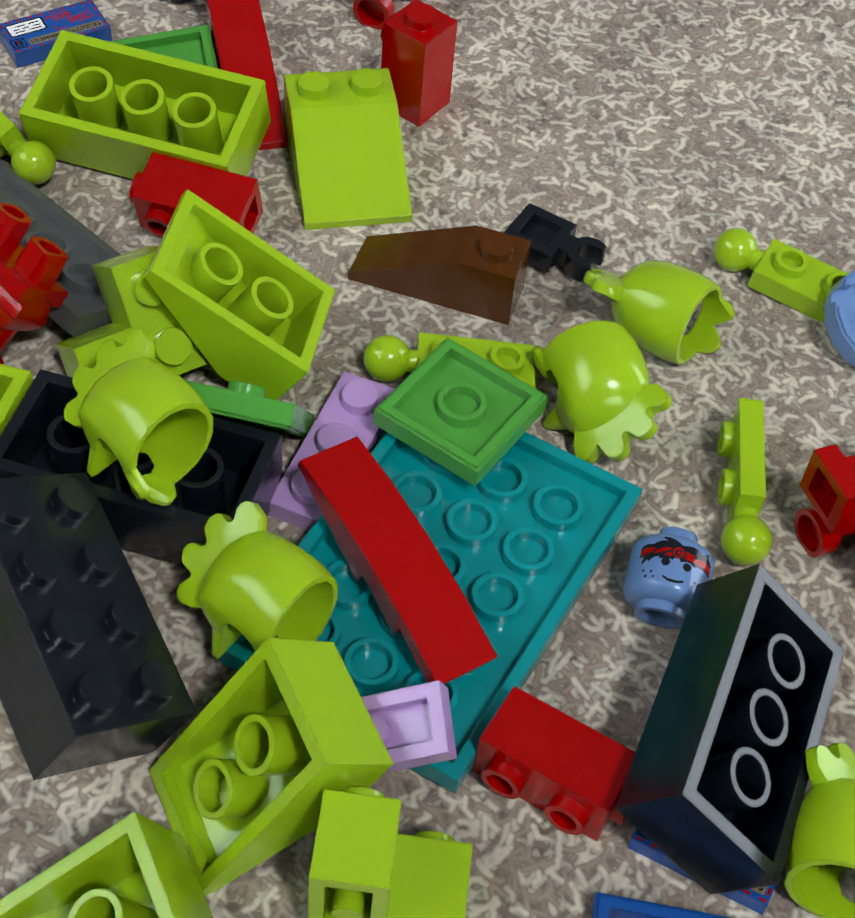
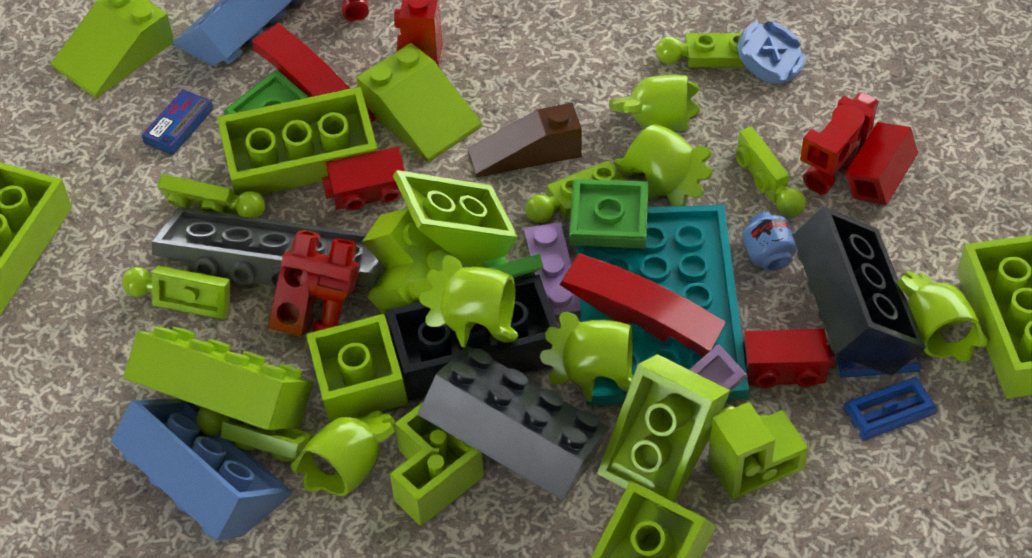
camera: 25 degrees left, 0 degrees up
(555, 242) = (570, 92): black plate -> none

